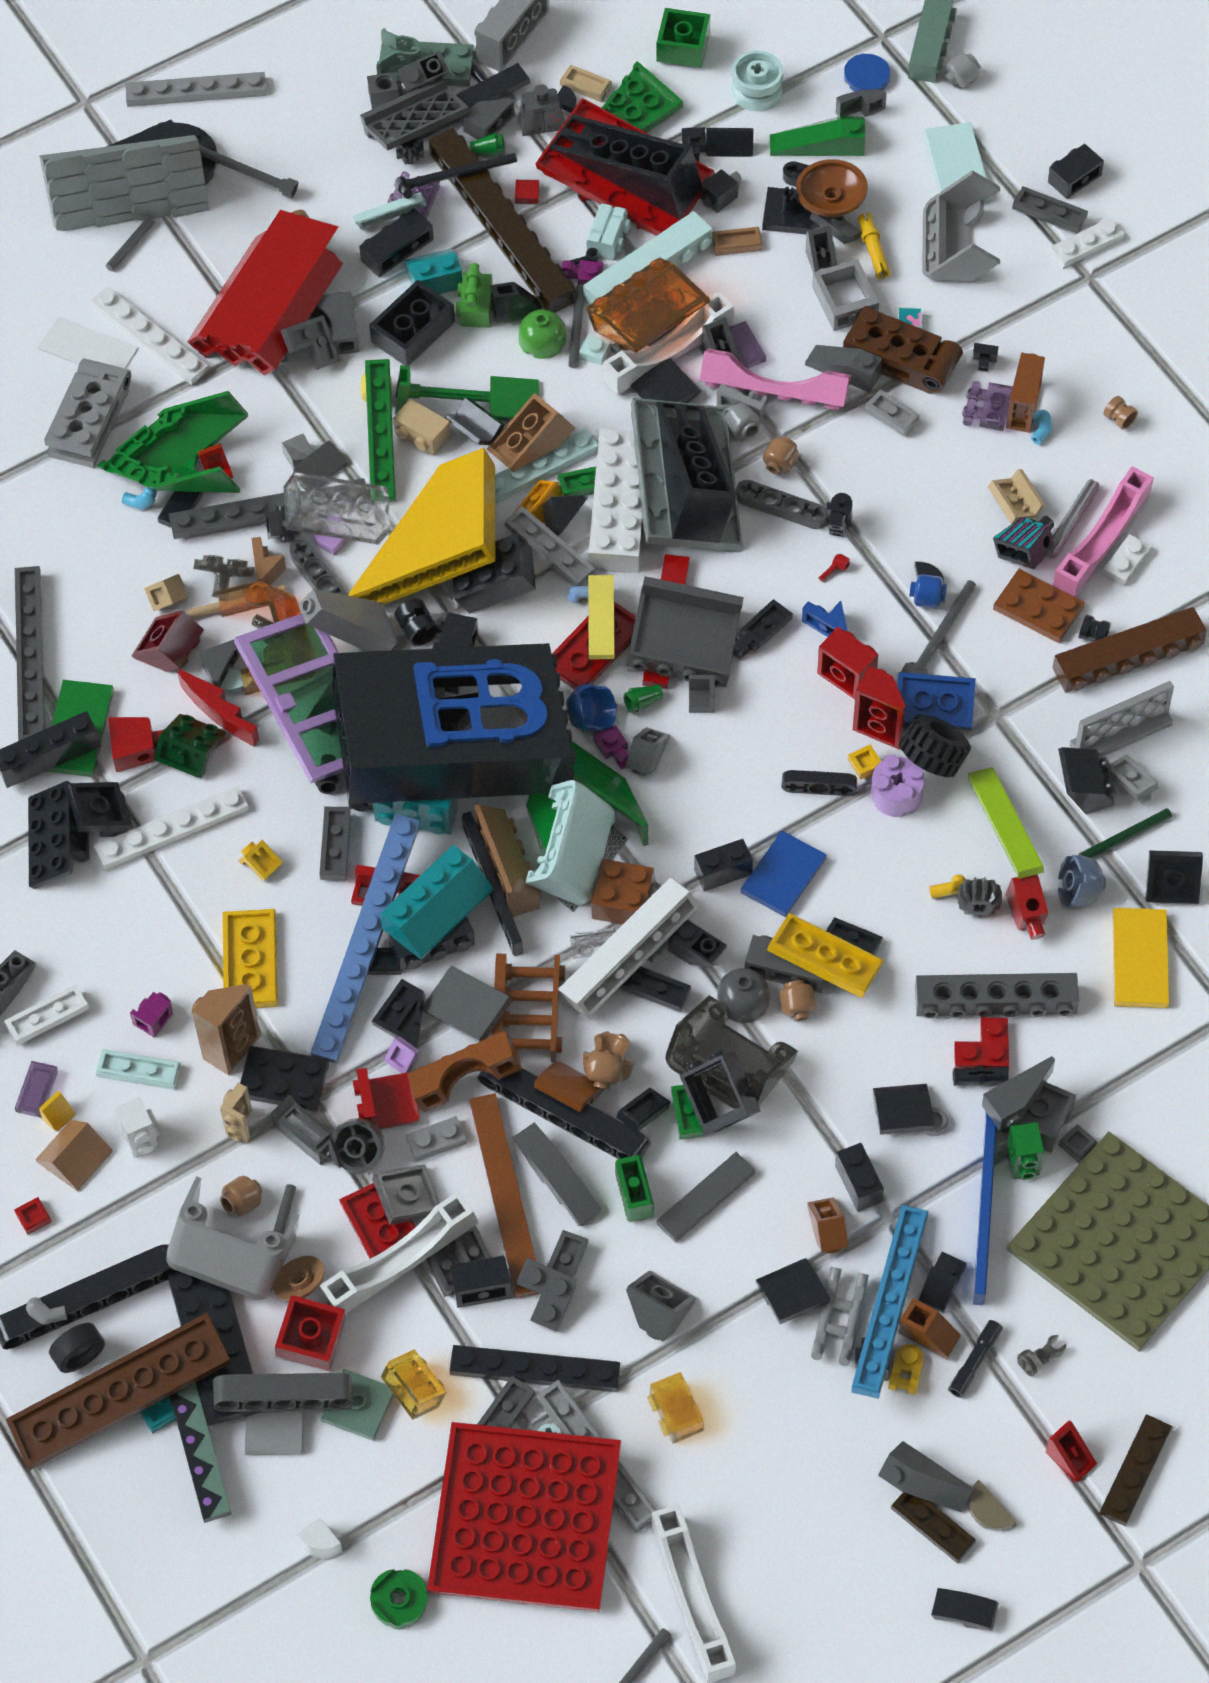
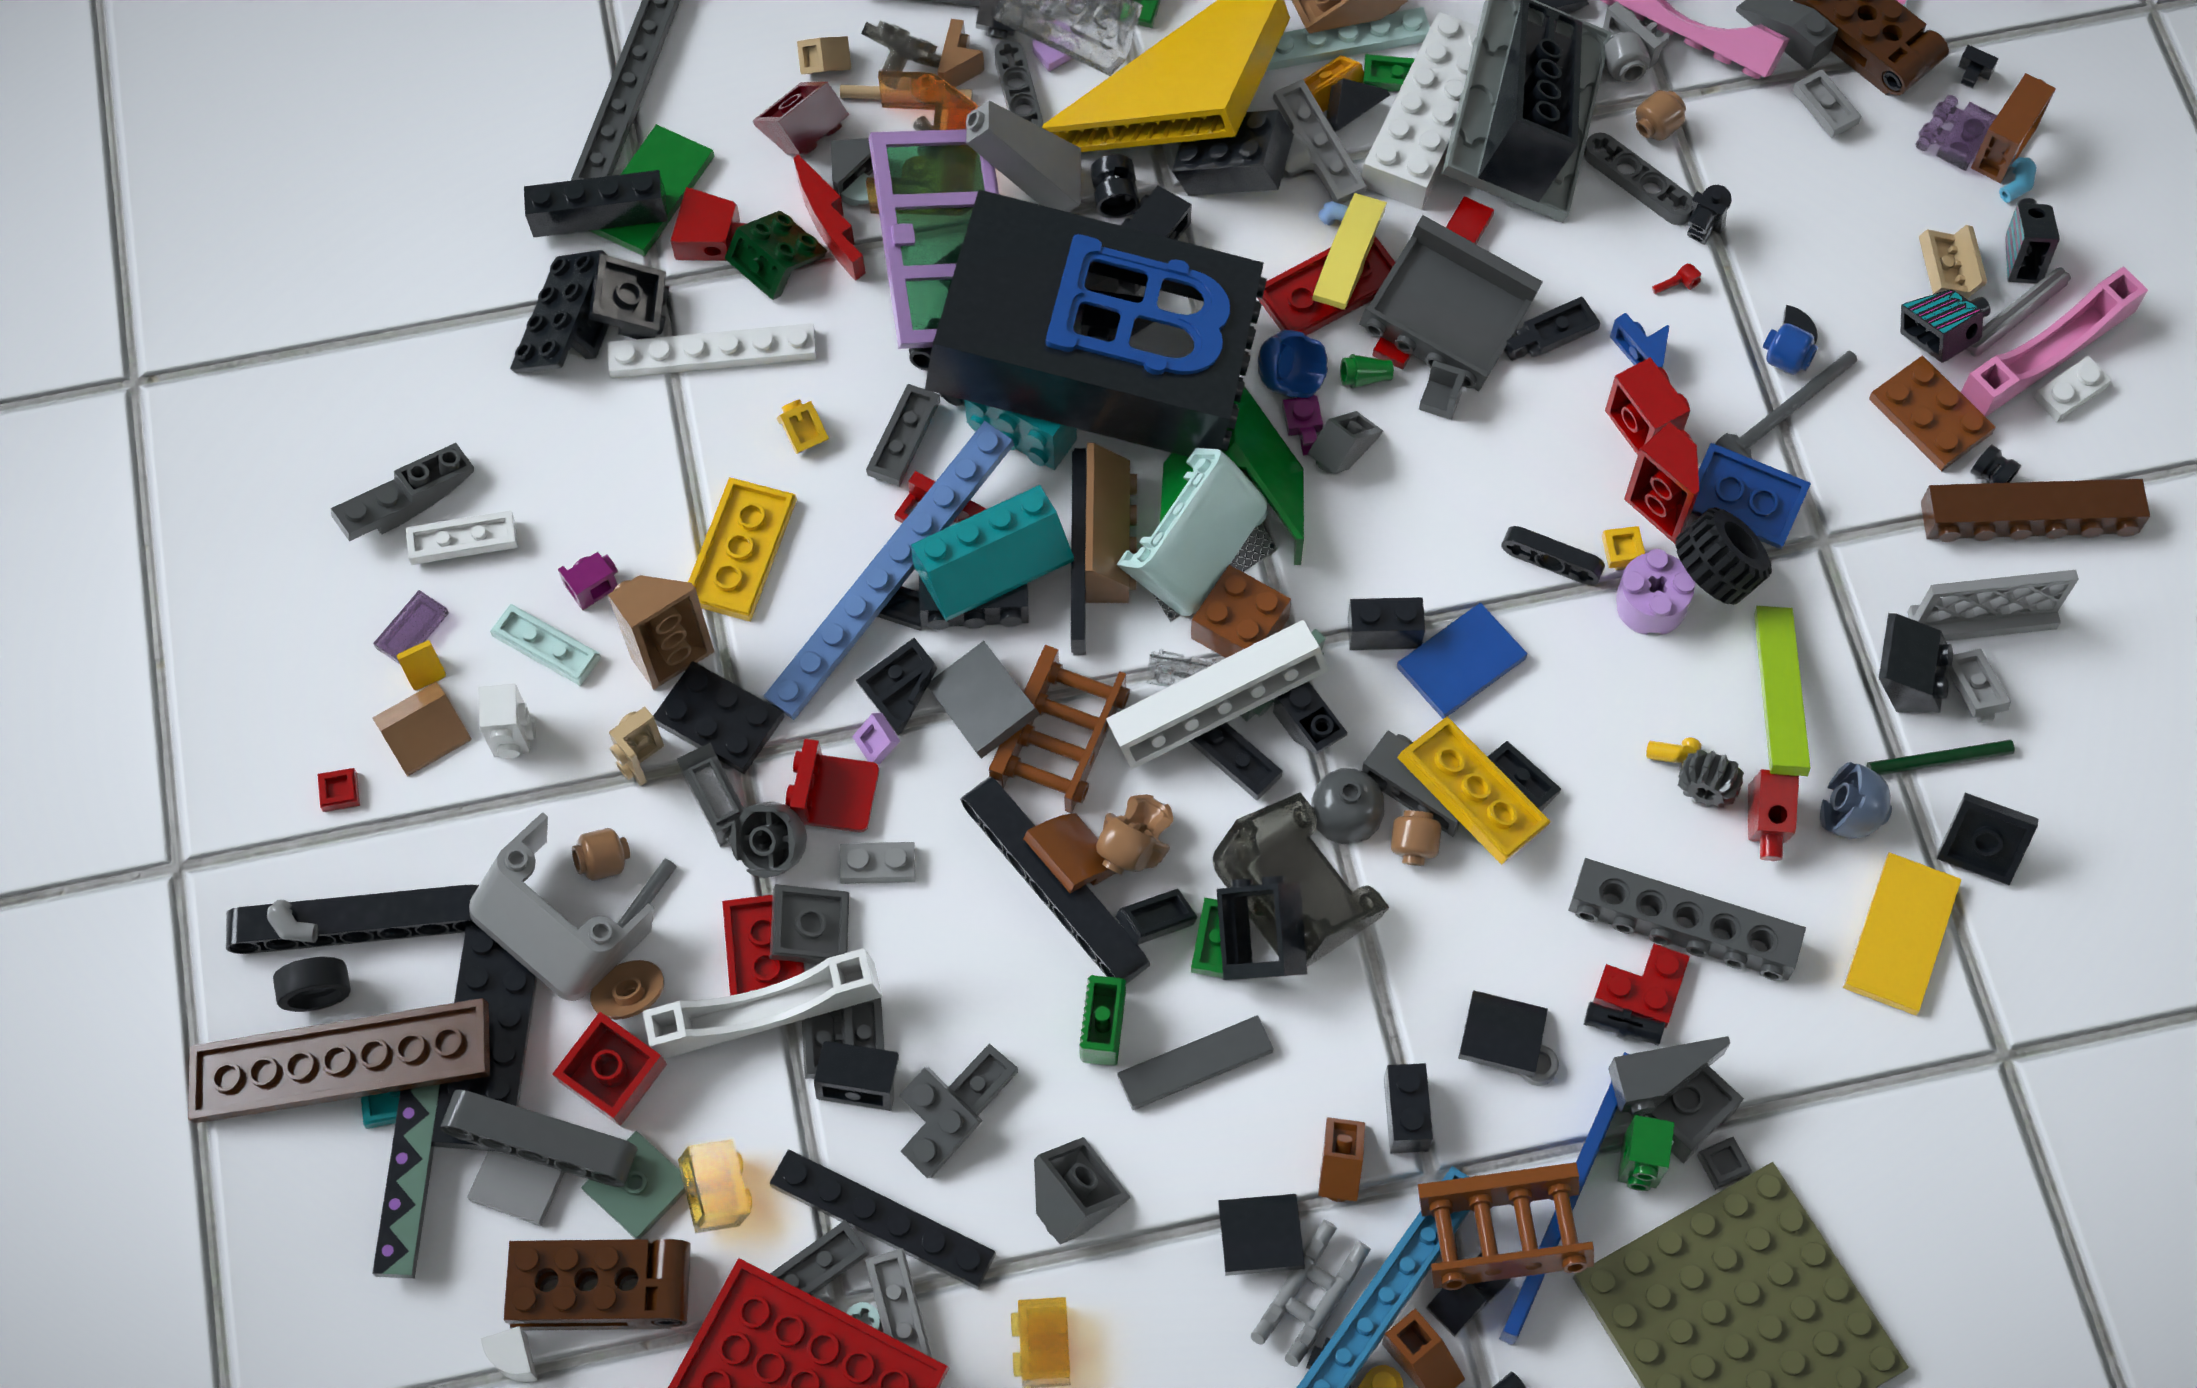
camera: 20 degrees right, 5 degrees up
(396, 1449) = (654, 1302): none -> reddish brown hinge
(435, 1081) = (900, 788): dark orange arch -> none
(503, 1187) = (937, 956): dark orange tile -> none
(556, 1173) = (1011, 964): dark grey slope -> none
(941, 1204) = (1500, 1189): none -> dark orange fence
(1063, 456) = (2033, 227): none -> black torso
(1120, 412) = (2132, 192): medium nougat wheel -> none

